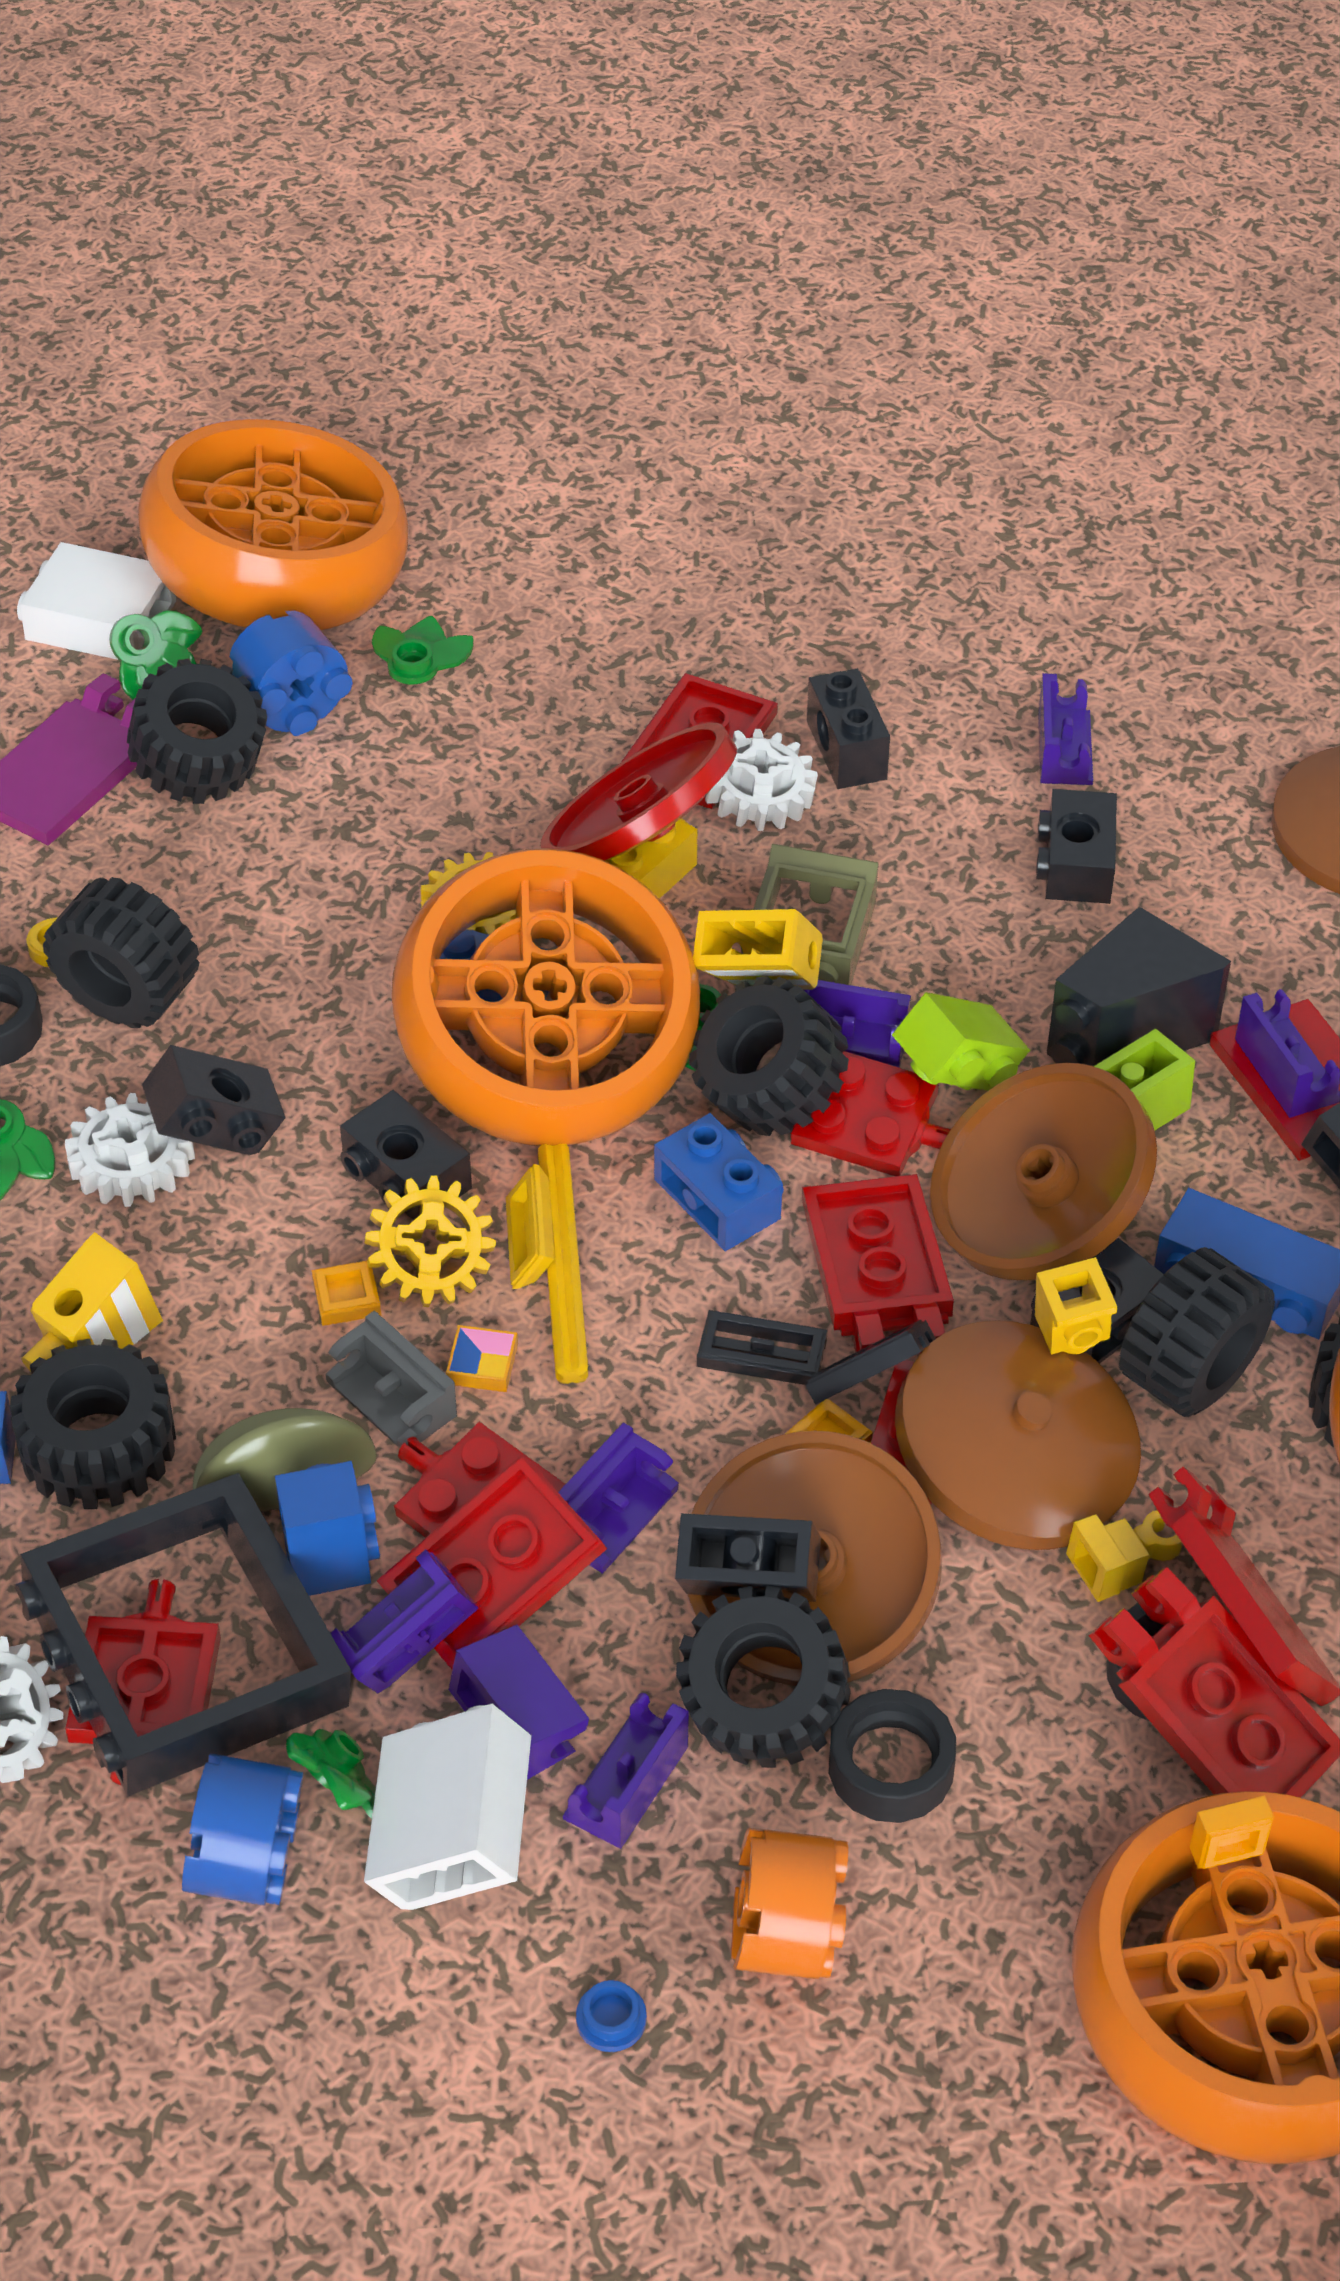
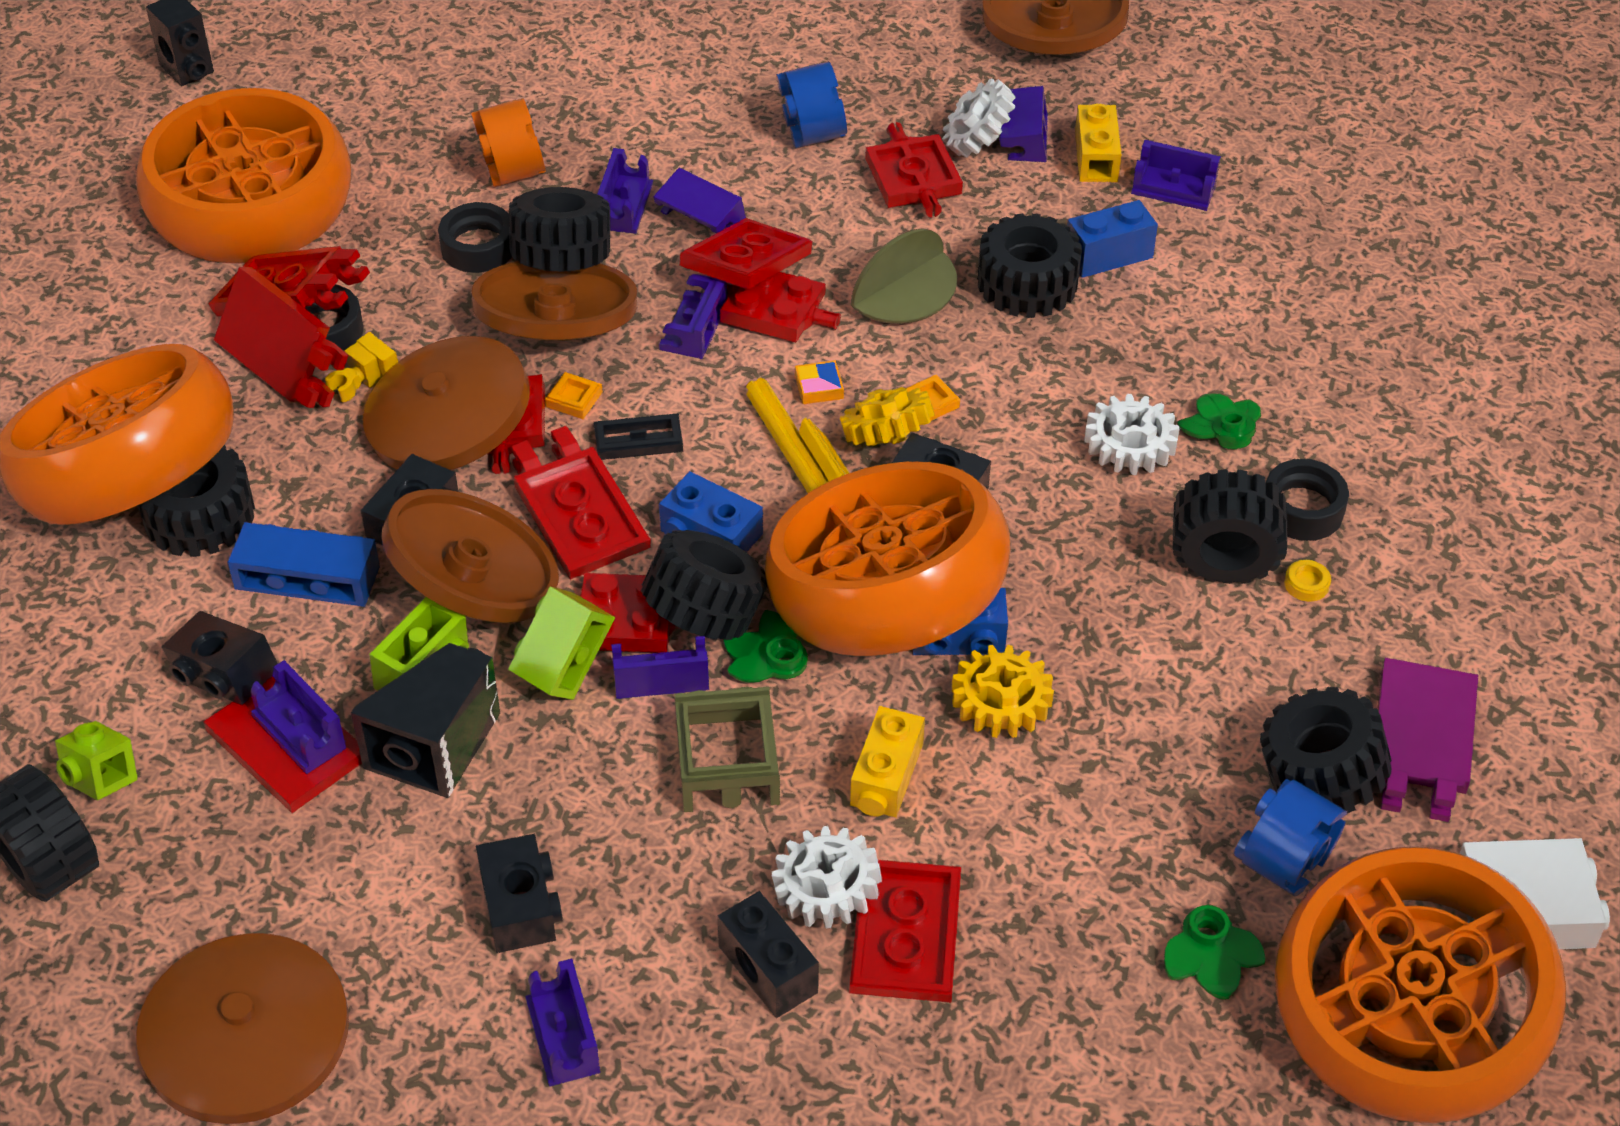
camera: 160 degrees right, 0 degrees up
(95, 1299) = (1074, 303): yellow torso -> none
(165, 641) = (1443, 830): plate -> none
(213, 1100) = (1110, 449): black brick -> none
(222, 1729) = (875, 212): black window -> none
(328, 1526) = (850, 230): blue brick -> none
(336, 1764) = (773, 140): green plate -> none
(391, 1381) = (863, 349): dark grey hinge -> none
(405, 1624) = (779, 210): dark purple hinge -> none
(448, 1808) = (708, 135): white brick -> none
(611, 2016) = (588, 105): blue plate -> none
(643, 794) = (897, 728): red dish -> none
(737, 1552) = (567, 240): black brick -> none
(772, 945) = (734, 625): yellow torso -> none
(870, 1361) = (527, 406): black tile -> none
(1080, 1321) = (419, 427): yellow brick -> none
(1196, 1331) = (333, 467): black tyre -> none
(1231, 1832) = (265, 163): light orange tile -> none

